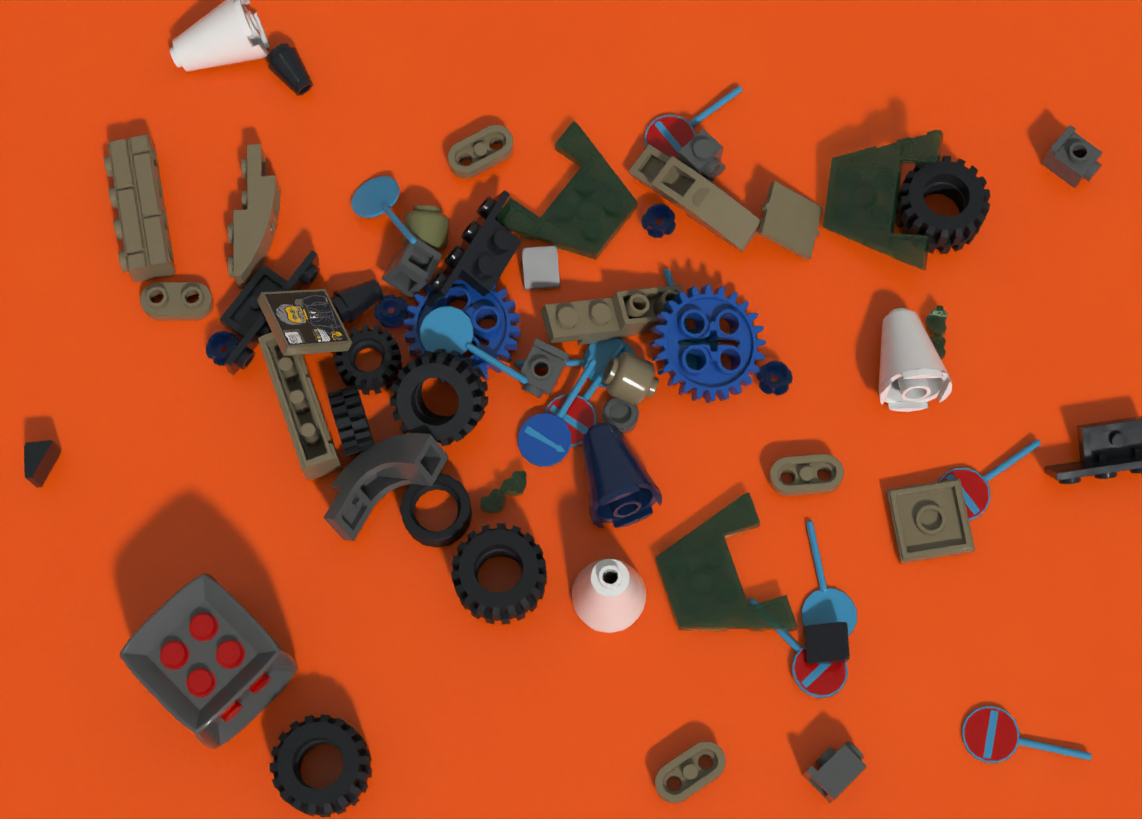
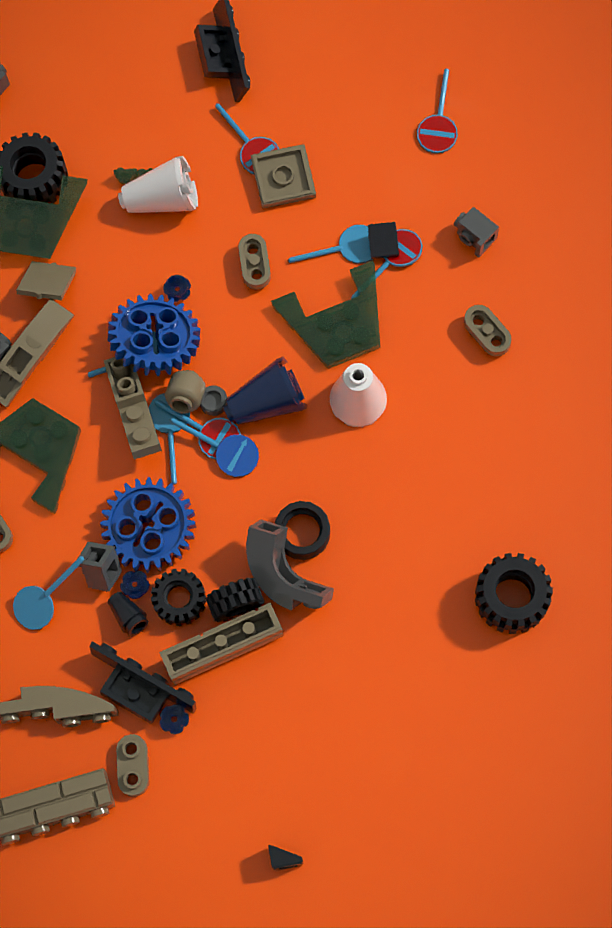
camera: 90 degrees left, 0 degrees up
(208, 661) = (446, 678): dark grey piece -> none
(304, 322) = (155, 642): tile -> none
(427, 225) = (59, 559): olive head -> none
(452, 330) = (158, 528): dark azure piece -> none
(456, 372) = (191, 535): black tyre -> none
(482, 254) = (86, 513): black bracket -> none
(495, 543) = (351, 452): black tyre -> none
(511, 487) = (276, 475): clear green piece -> none
(540, 268) = (92, 469): light grey slope -> none
(553, 358) = (174, 464): dark grey brick -> none
(660, 212) = (44, 375): clear blue plate -> none

